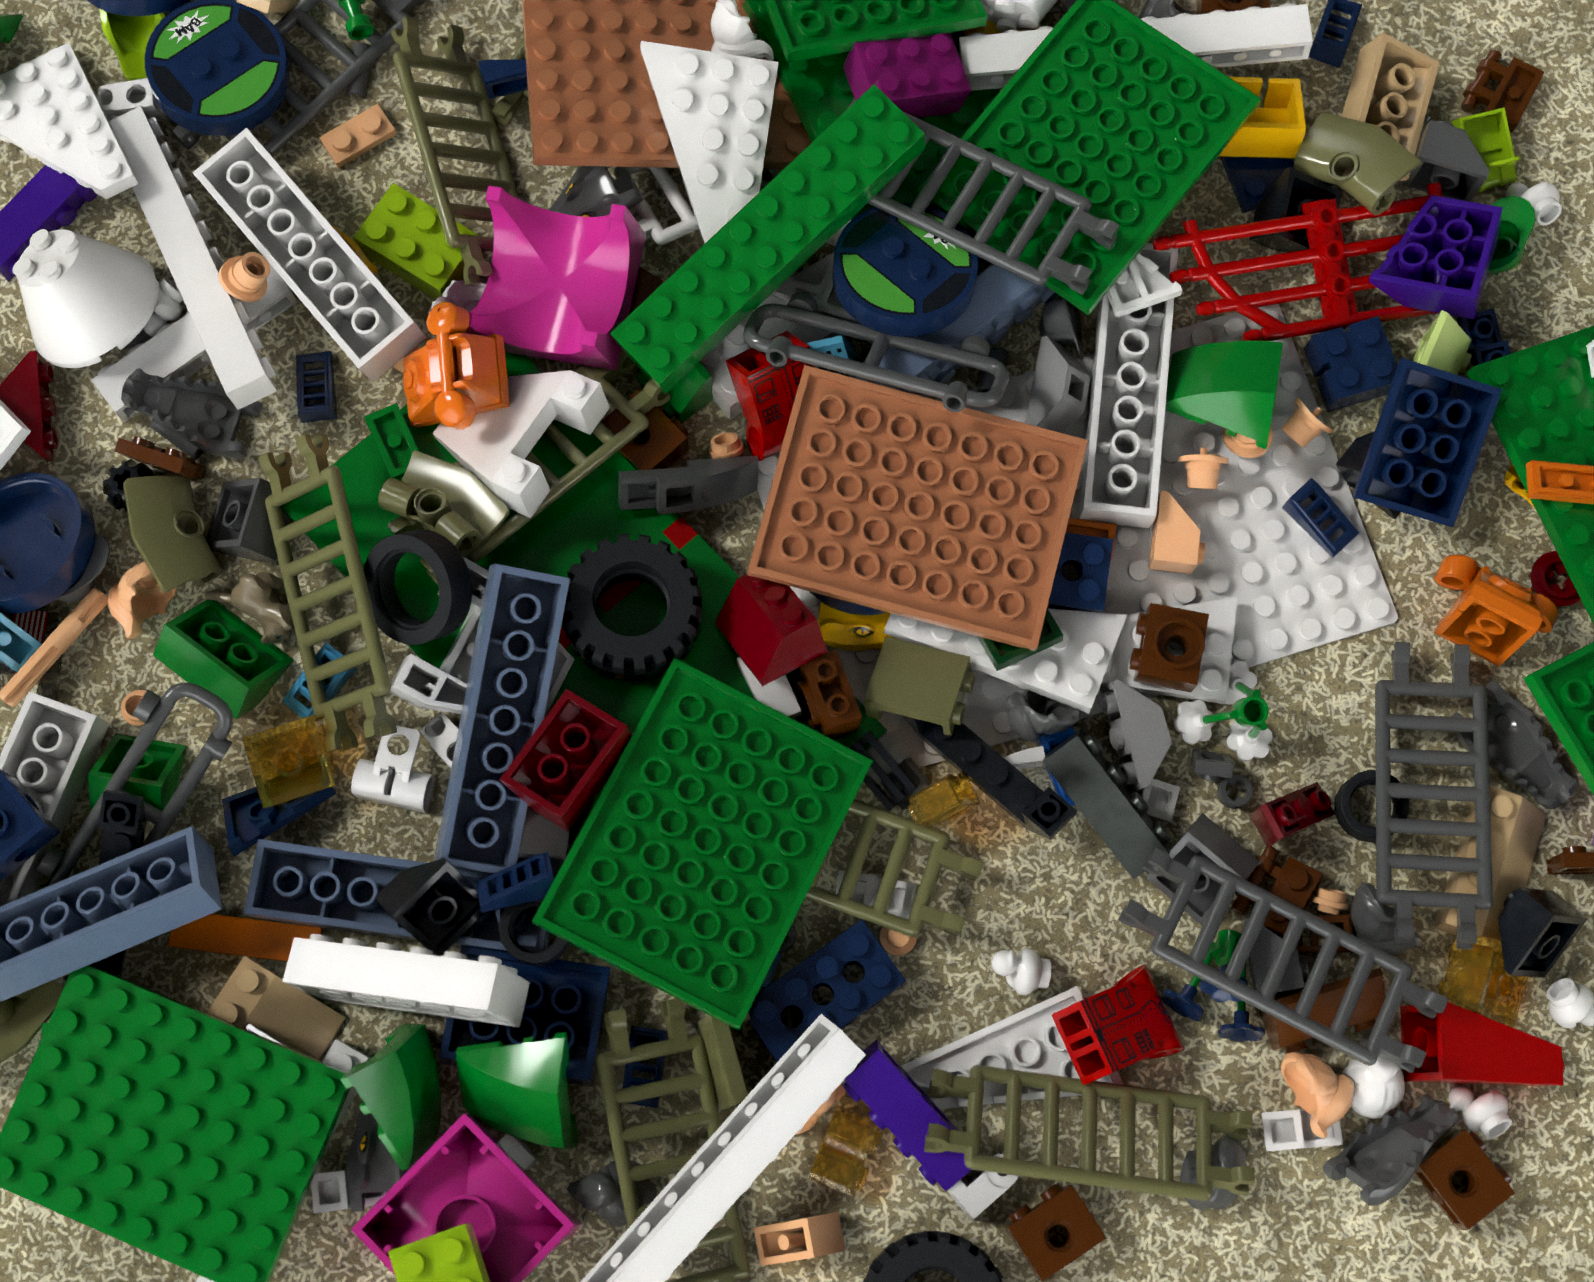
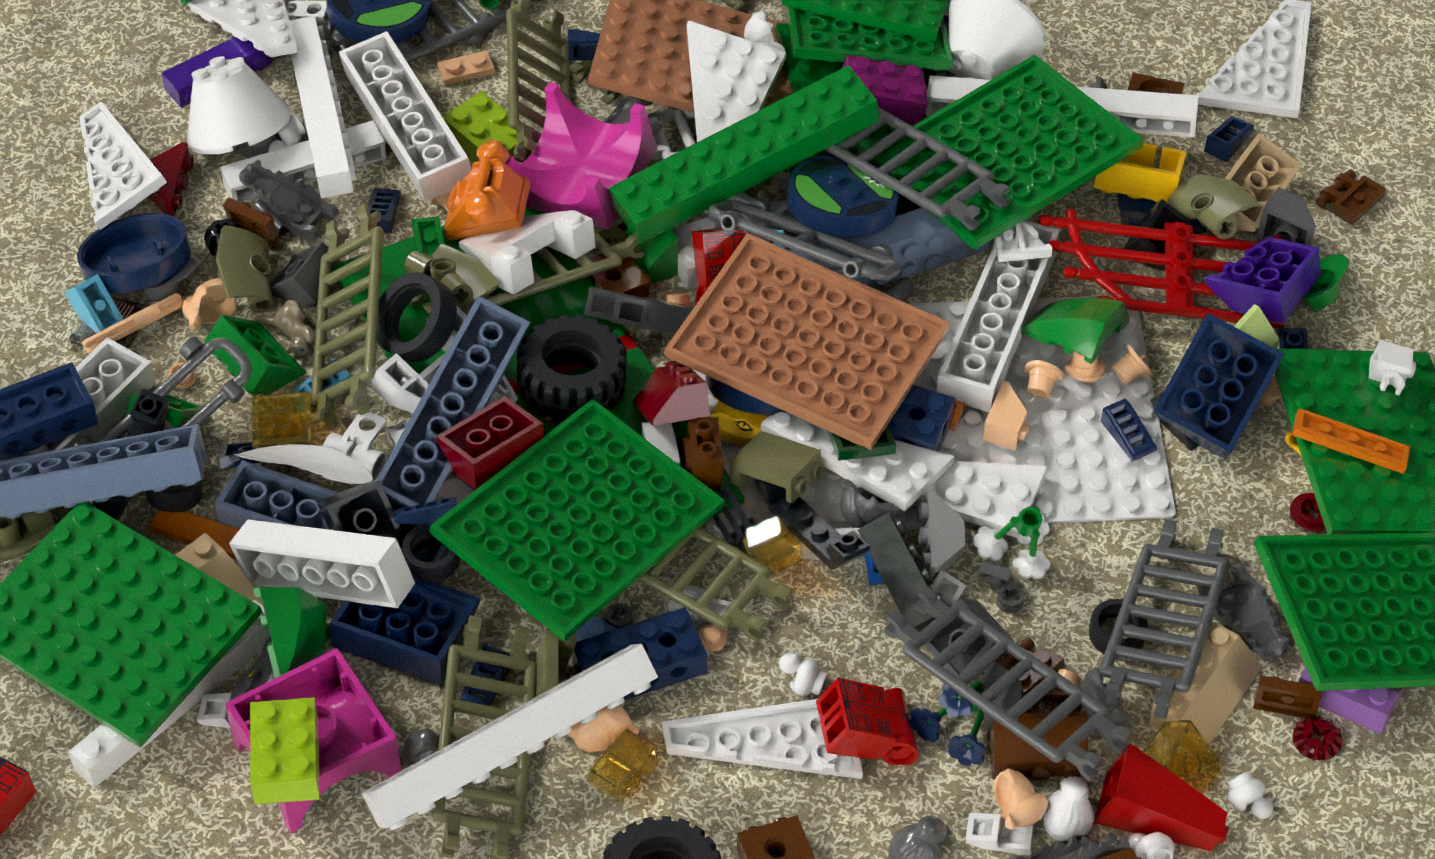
camera: 15 degrees right, 25 degrees down
(245, 276) = (356, 117): light nougat piece -> none
(351, 824) = (313, 458): none -> white sticker
(520, 1089) = (386, 654): green wedge -> none
(799, 1239) = (570, 815): light nougat slope -> none
(906, 1111) = (683, 744): dark purple brick -> none
(981, 1191) = (729, 814): white leg -> none
(1057, 388) = (945, 300): light grey slope -> none
(1062, 324) = (962, 271): dark grey piece -> none
(1153, 661) = (980, 478): reddish brown brick -> none
(1233, 1124) = (737, 737): olive bar -> none
(1292, 814) = (1047, 616): dark red slope -> none
(1357, 360) = (1172, 335): dark blue piece -> none
(1492, 610) = (1247, 509): orange piece -> none
(1493, 142) = (1330, 225): lime piece -> none
(1536, 930) = (1226, 729): black slope -> none
(1542, 197) = (1361, 268): white animal -> none

